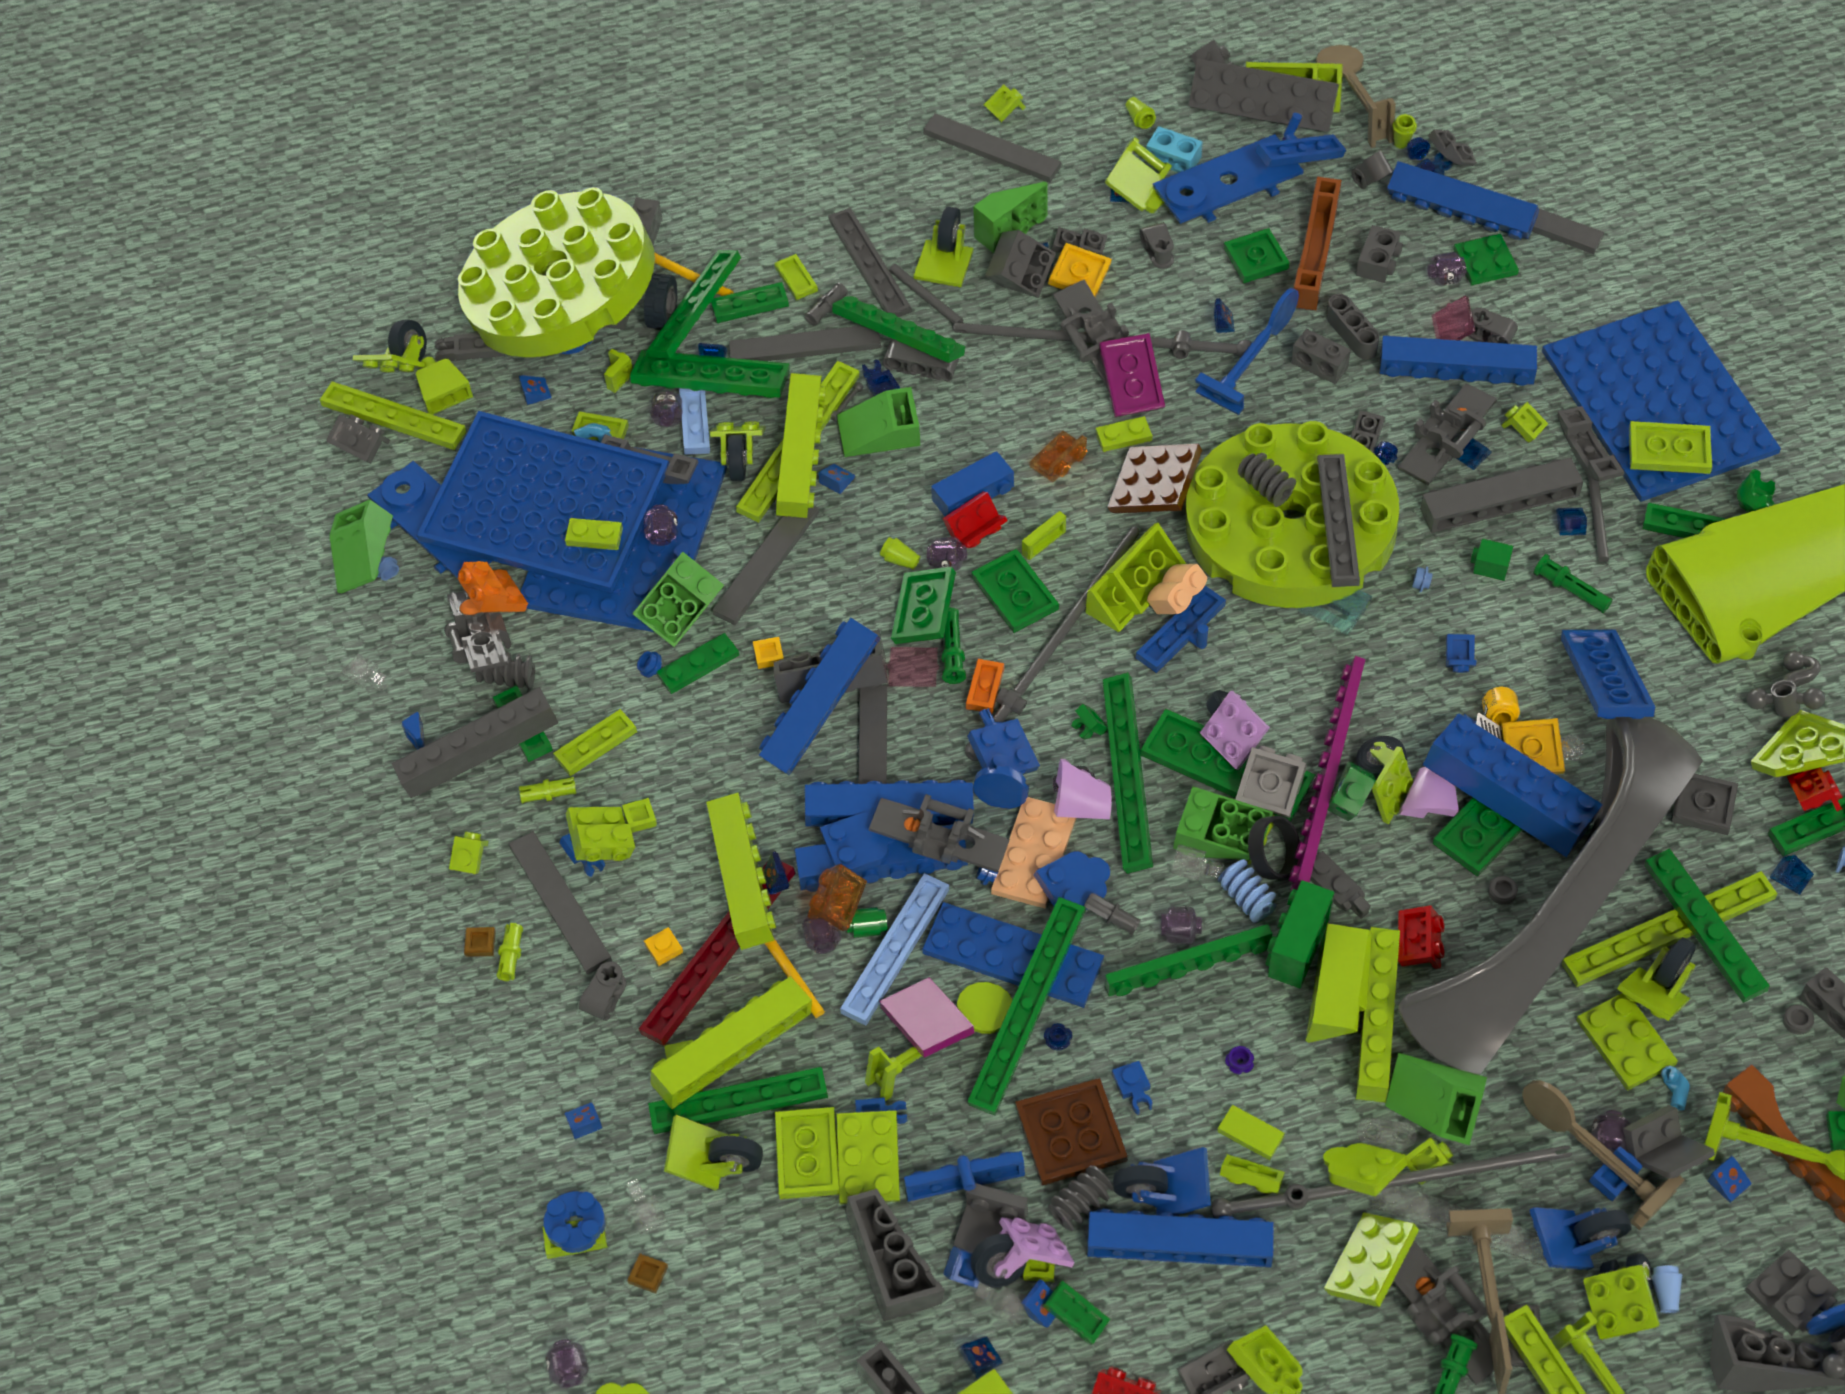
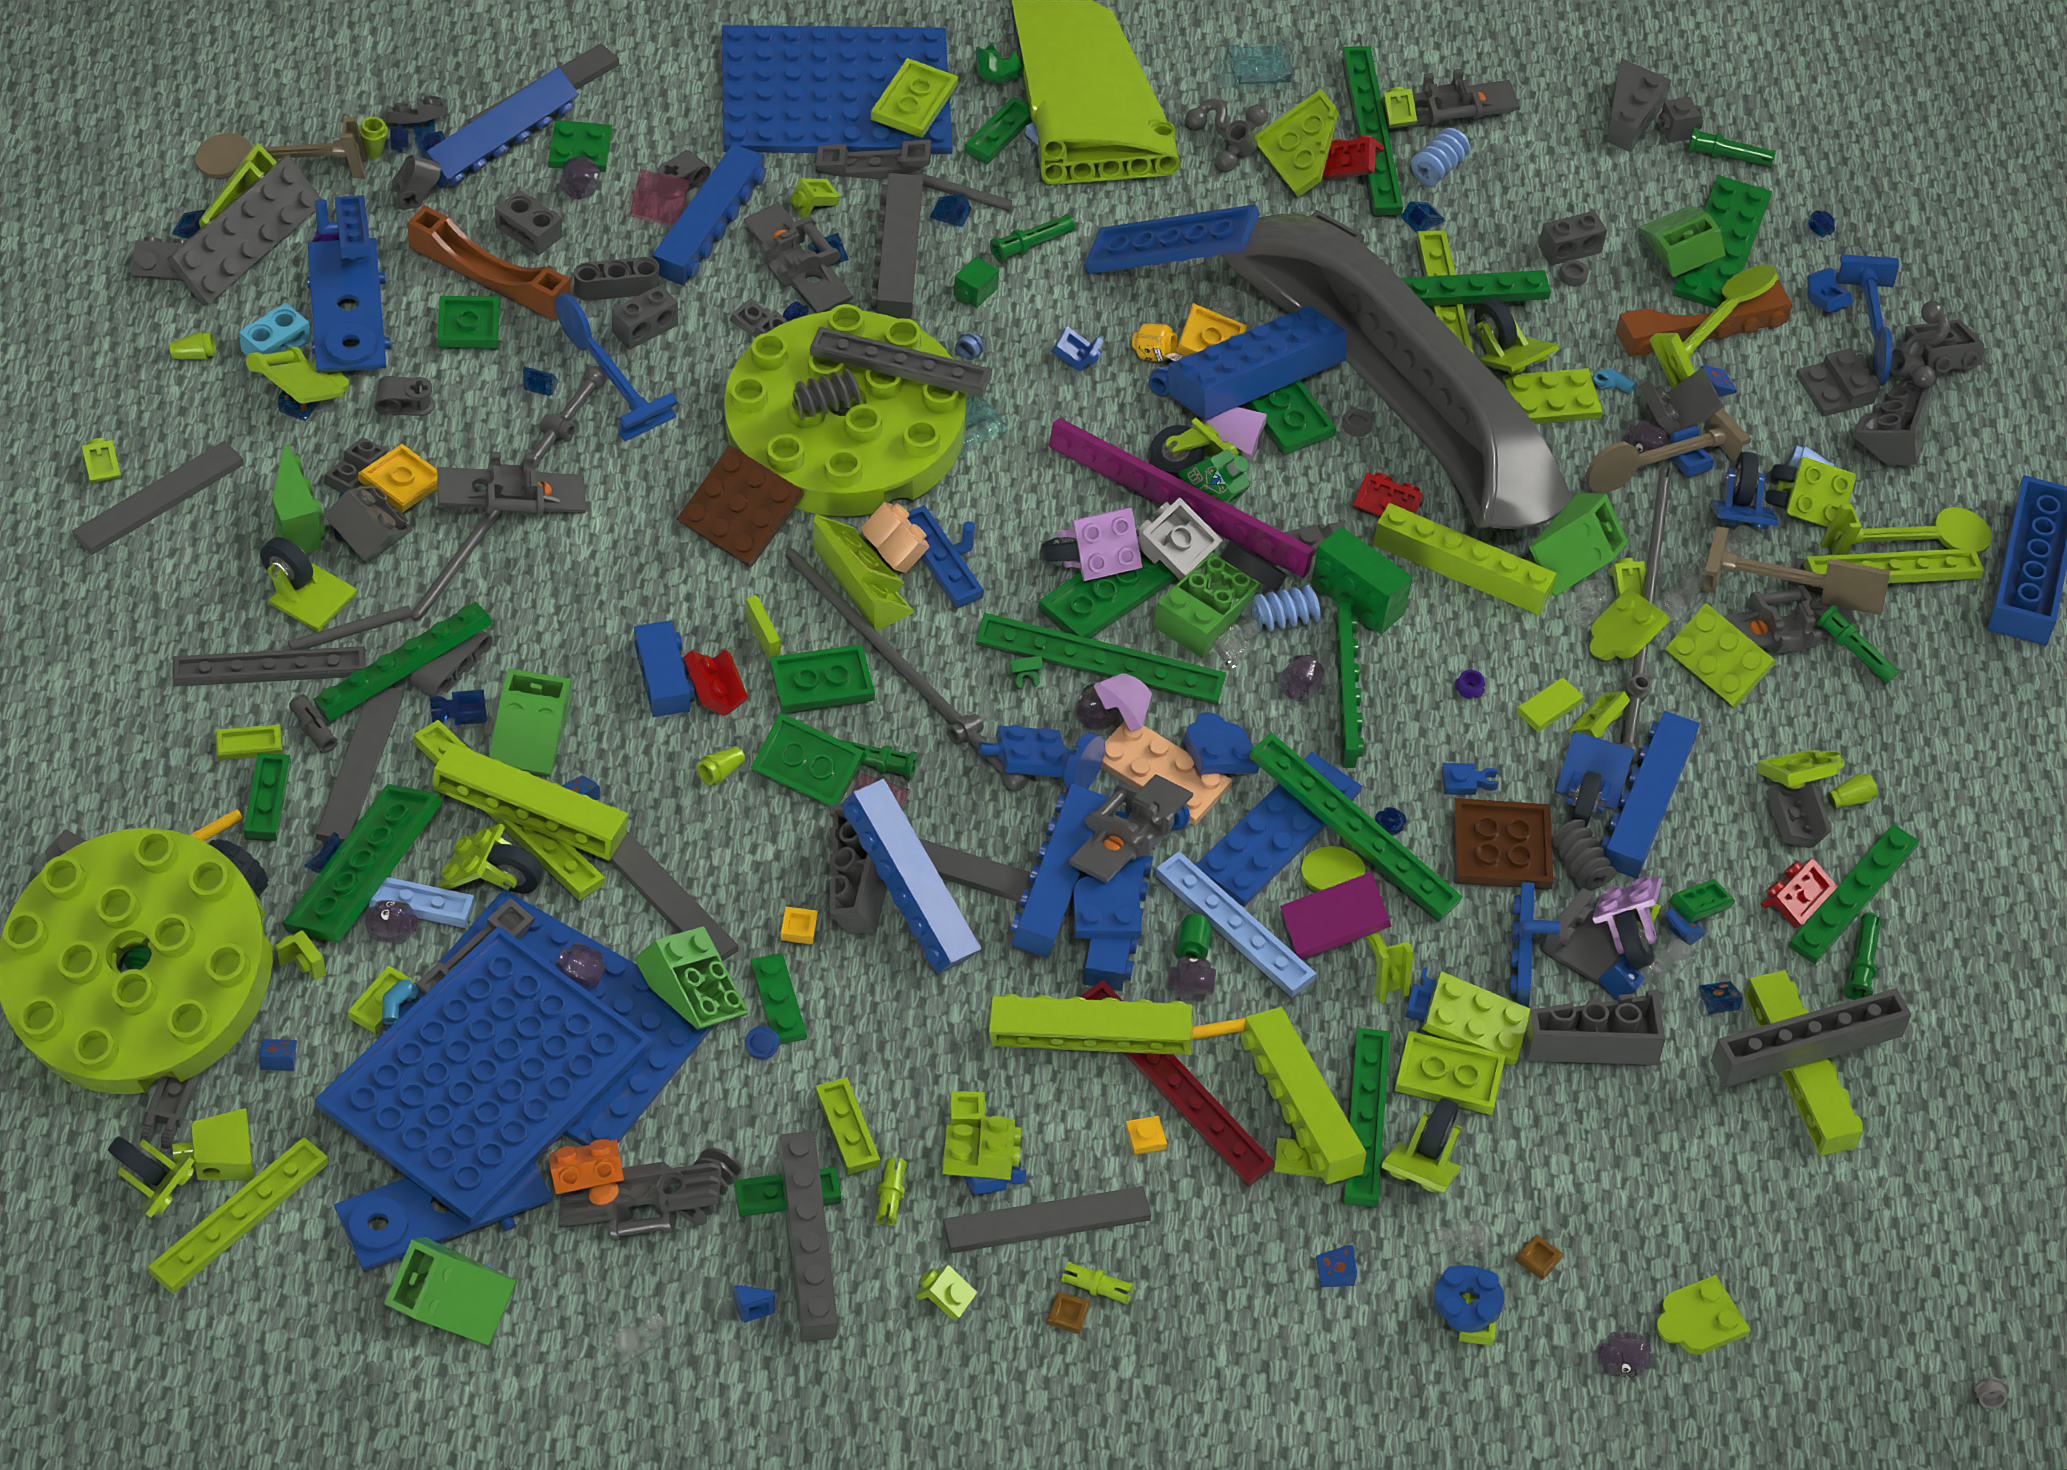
camera: 80 degrees left, 5 degrees down
(355, 438) = (258, 1262): dark grey bracket -> none
(594, 534) = (570, 1029): lime plate -> none
(602, 995) = (1188, 1202): dark grey piece -> none
(694, 304) = (233, 826): green plate -> none
(775, 875) = (1113, 986): clear blue slope -> none
(837, 896) = (1167, 944): clear orange bracket -> none
(946, 553) = (745, 721): clear purple head -> none
(985, 685) = (936, 744): orange plate -> none
(1059, 455) = (656, 581): clear orange bracket -> none
(1112, 913) = (1270, 723): dark grey axle -> none
(1123, 434) = (653, 519): lime plate -> none
(1132, 375) = (587, 477): magenta tile -> none
(1339, 982) = (1440, 577): lime slope -> none

